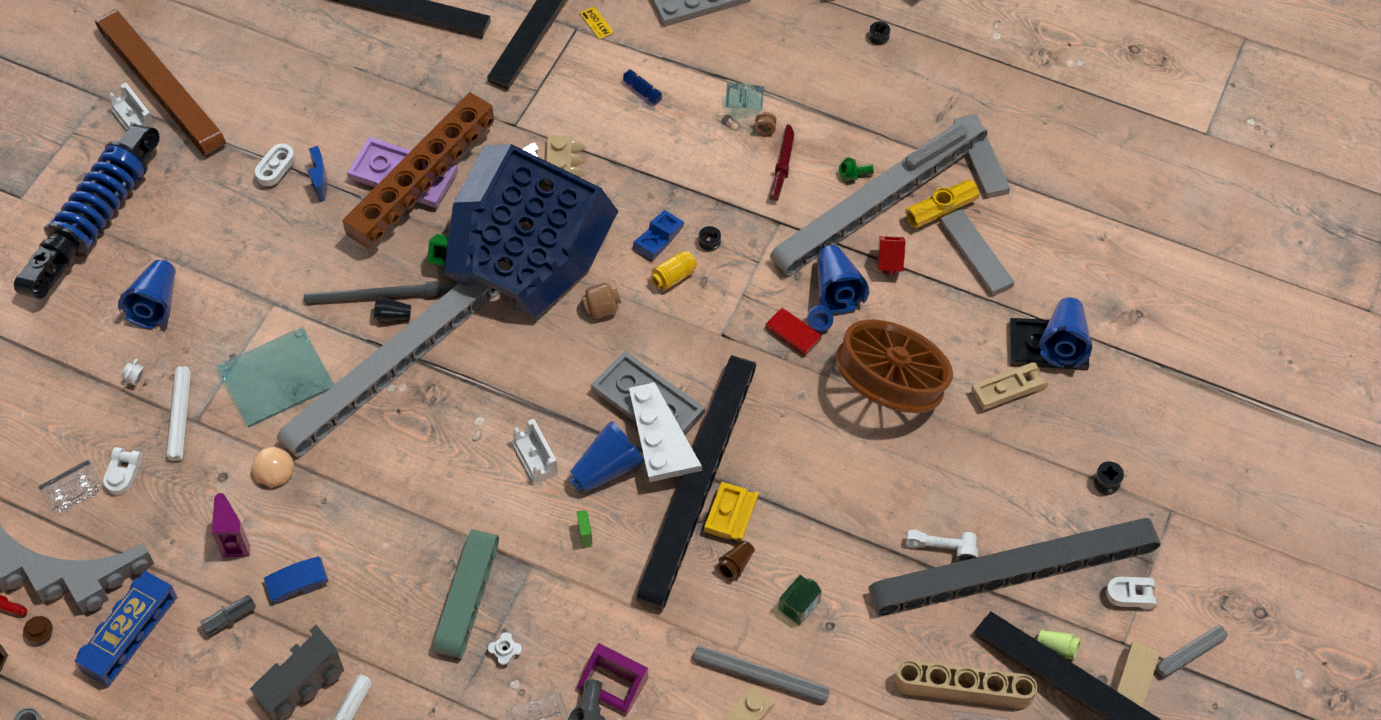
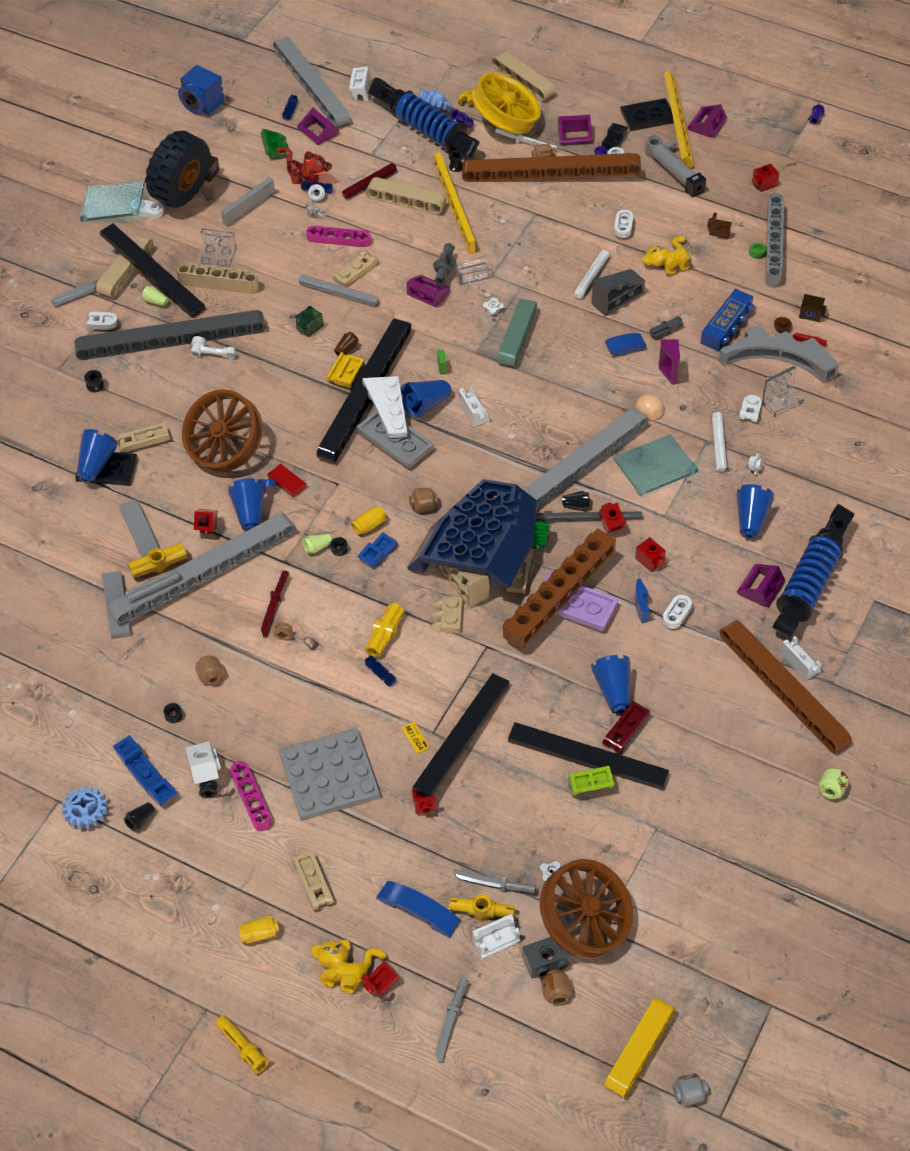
camera: 175 degrees left, 5 degrees down
(168, 185) = (767, 588): none -> magenta tile
(299, 234) = (650, 554): none -> red brick
(345, 275) = (611, 517): none -> red brick
(352, 32) = (626, 726): none -> dark red plate
(362, 74) = (614, 681): none -> blue cone
(640, 129) = (384, 630): none -> yellow piece
(739, 237) = (316, 542): none -> yellowish green cone
(744, 96) = (297, 654): clear light blue panel -> none
(846, 74) = (209, 670): none -> medium nougat head
(850, 171) = (223, 593): green plate -> none

